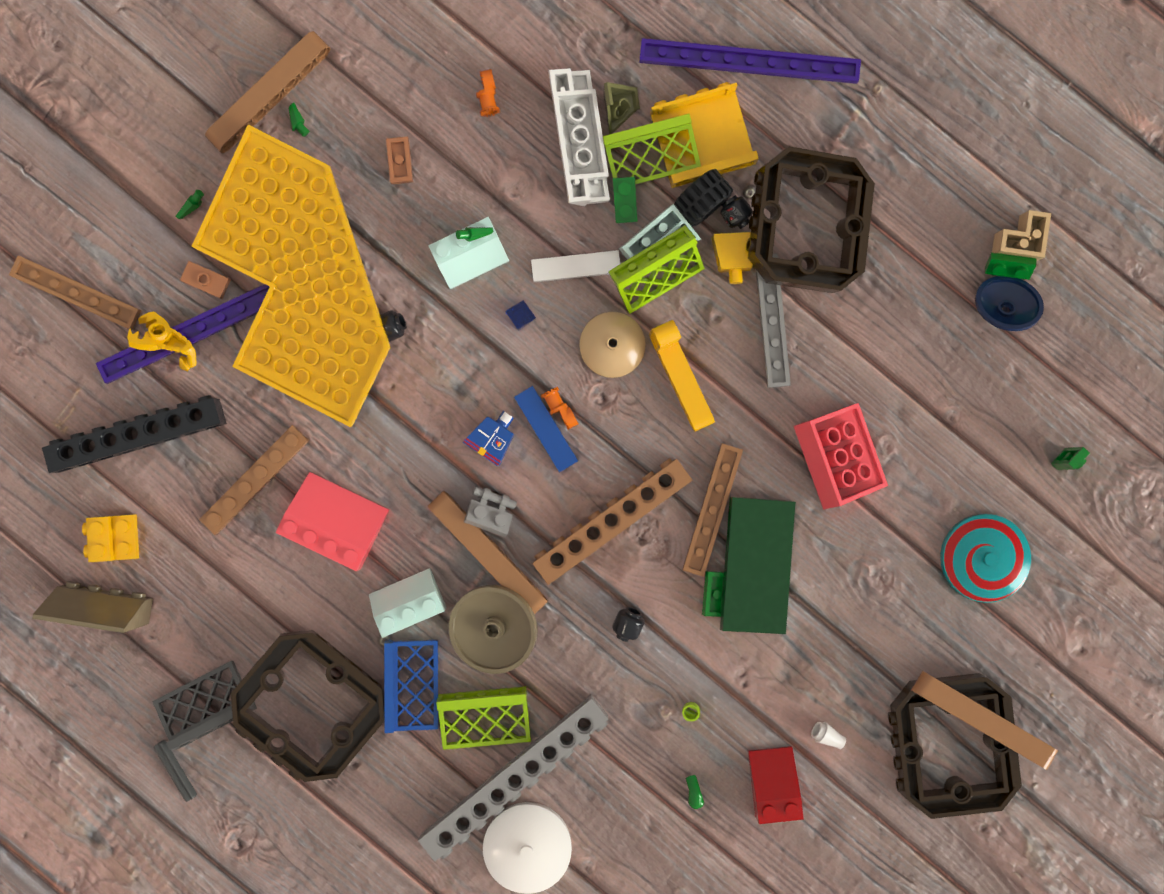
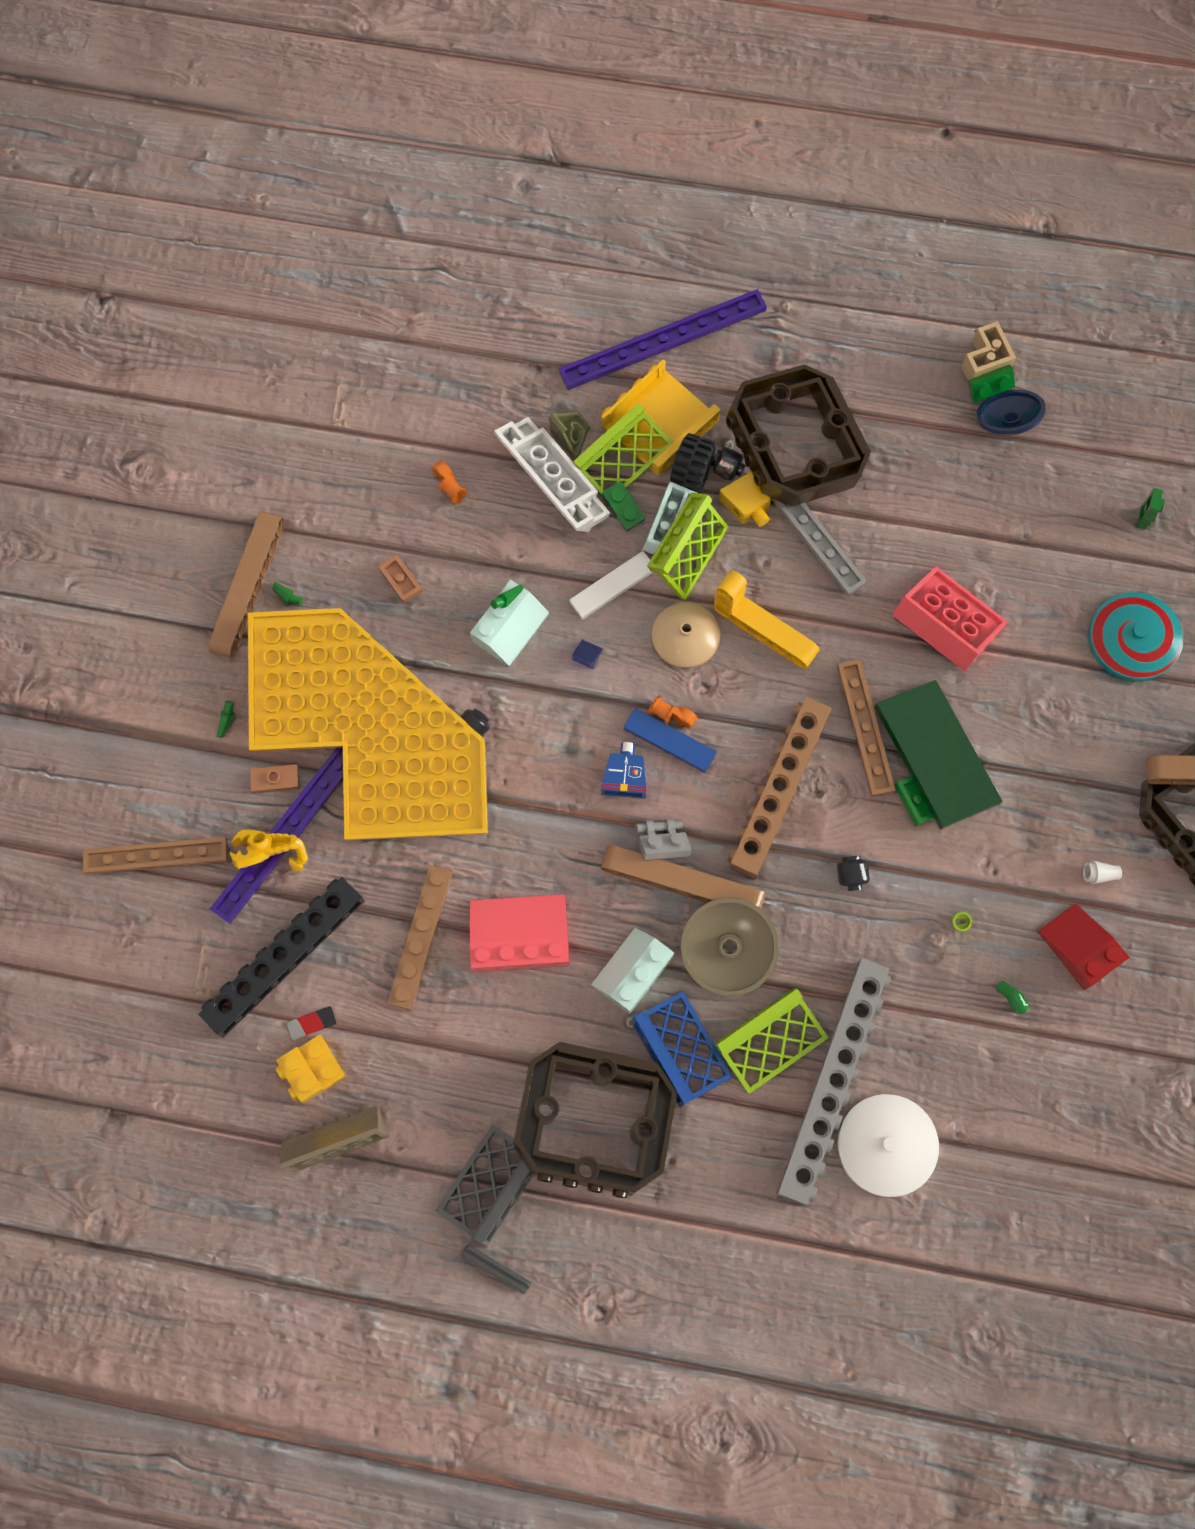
camera: 30 degrees left, 15 degrees down
(133, 500) = (311, 1023): none -> sticker

